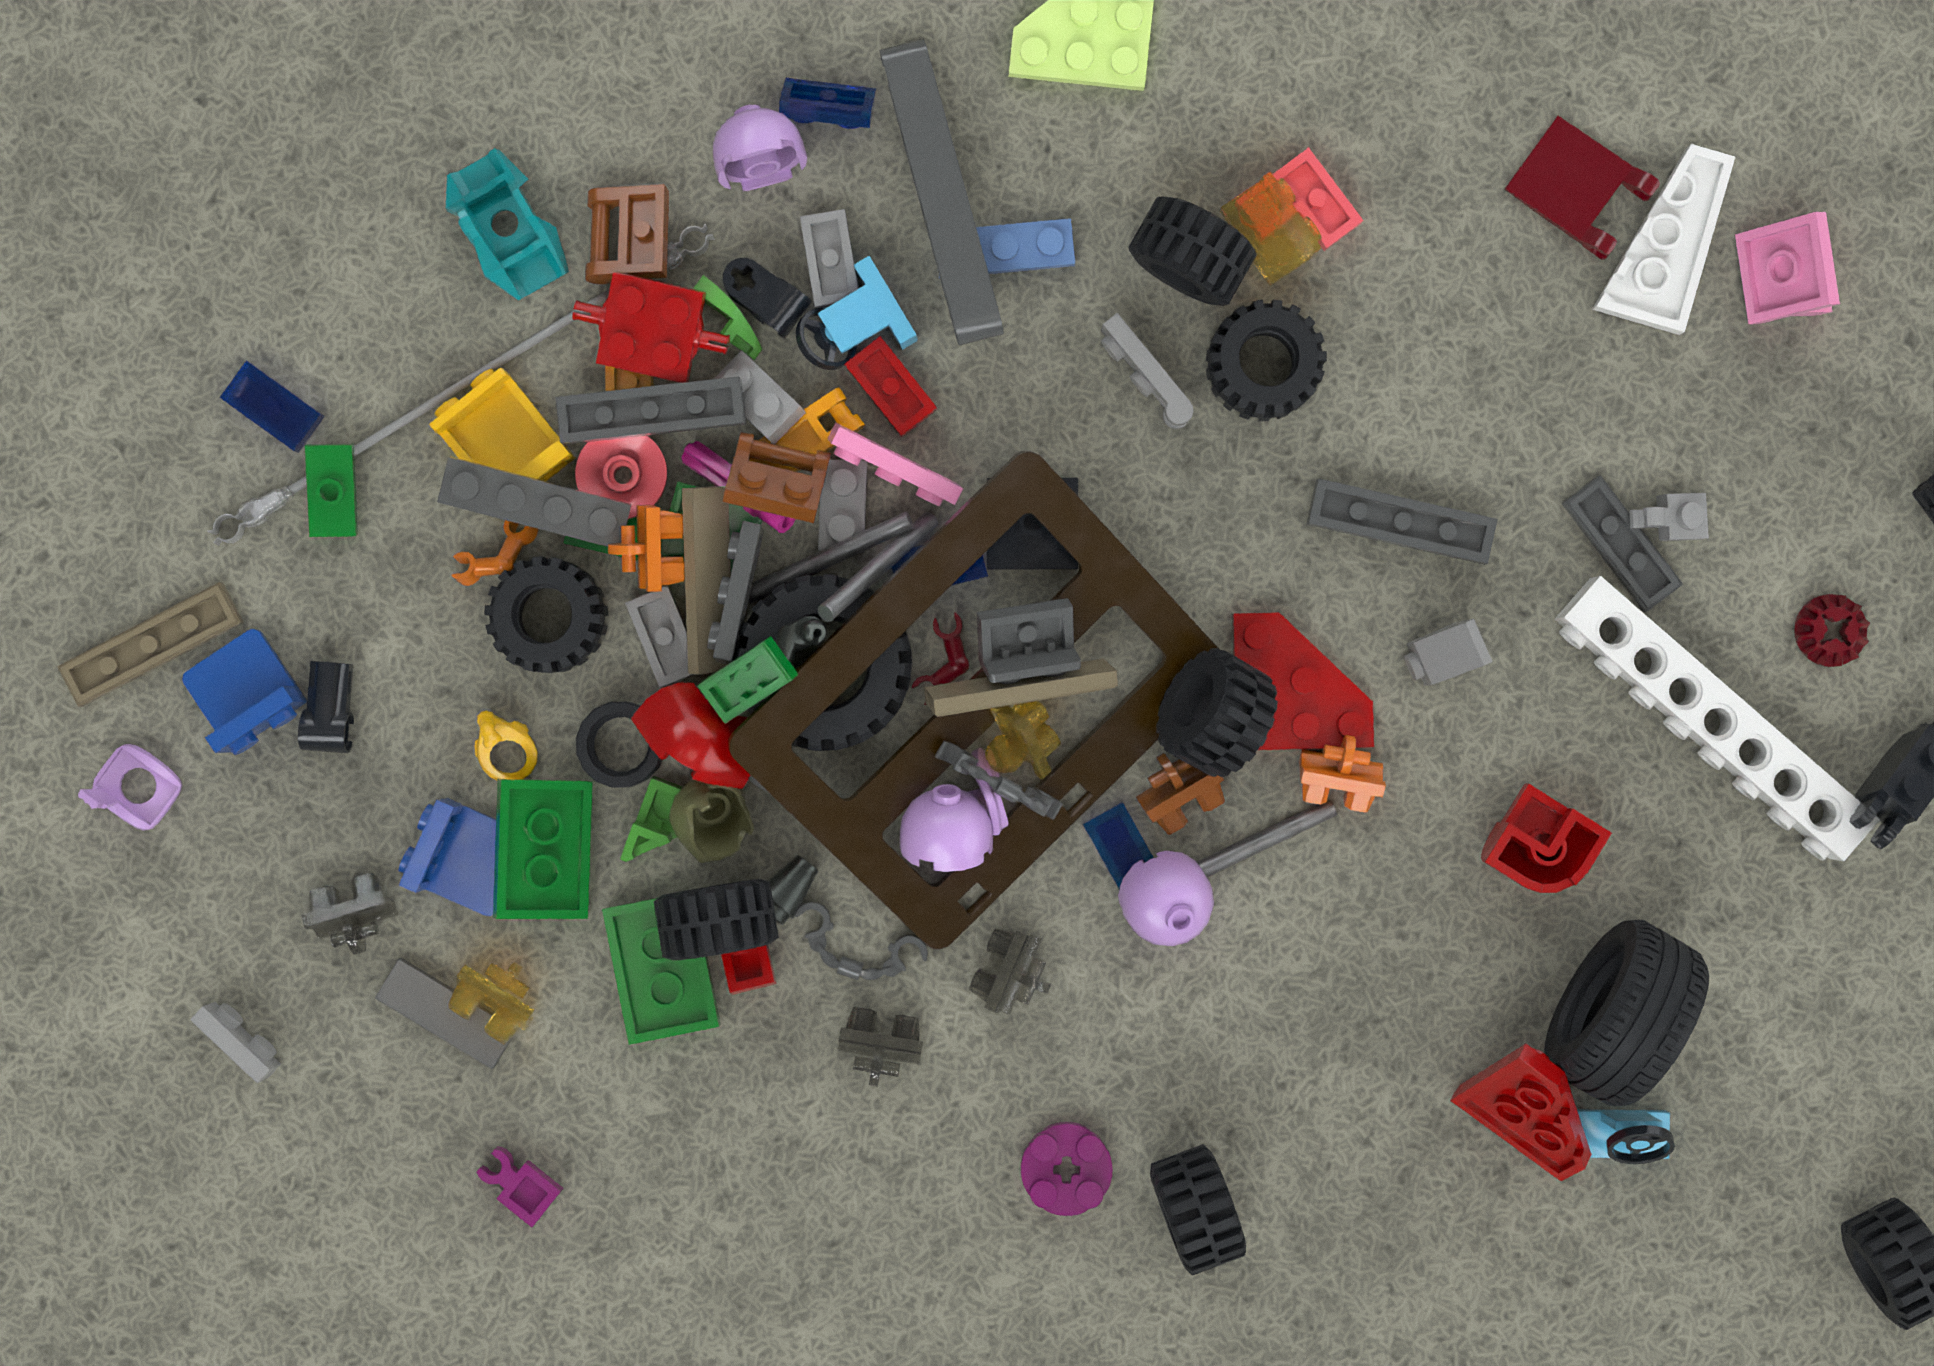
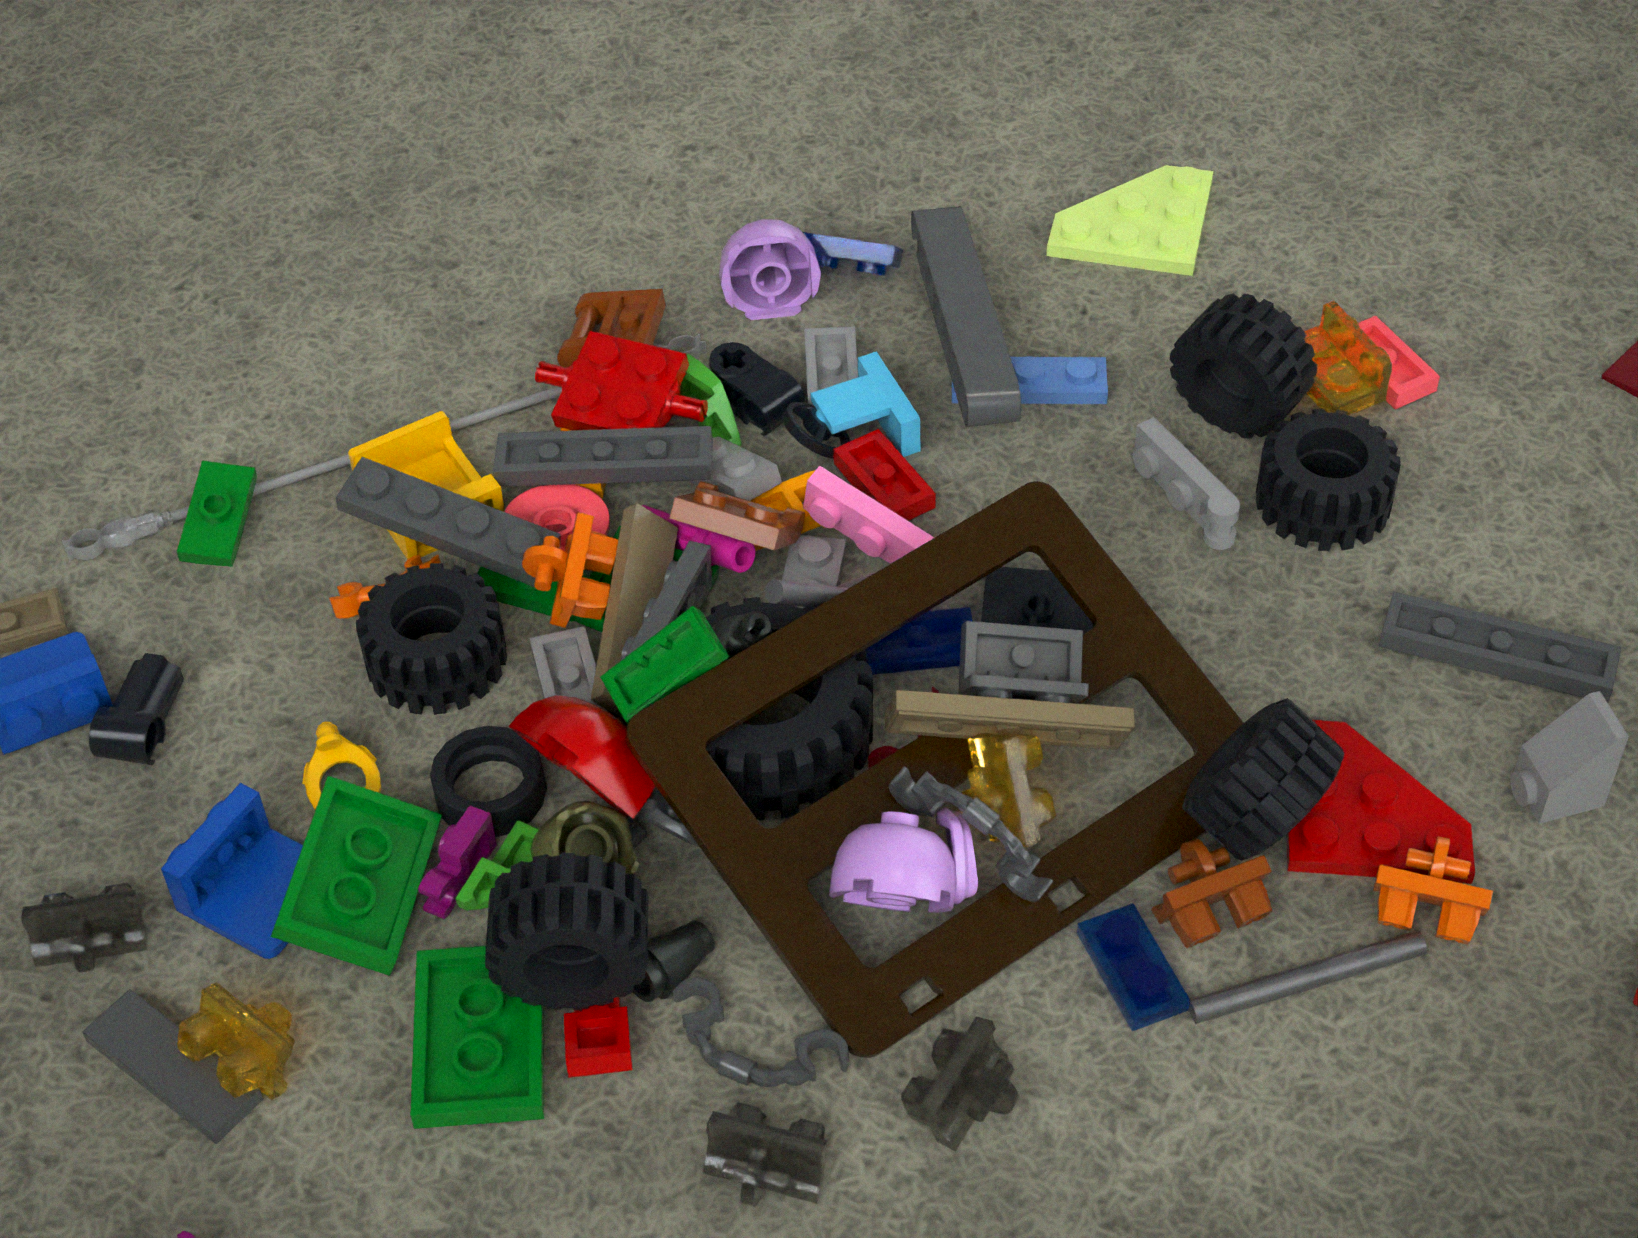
camera: 10 degrees right, 40 degrees down
(272, 406) = (176, 439): clear blue plate -> none
(514, 262) = (489, 351): teal piece -> none
(615, 813) = (459, 853): none -> magenta plate
(1166, 899) = (1188, 1007): lavender cylinder -> none

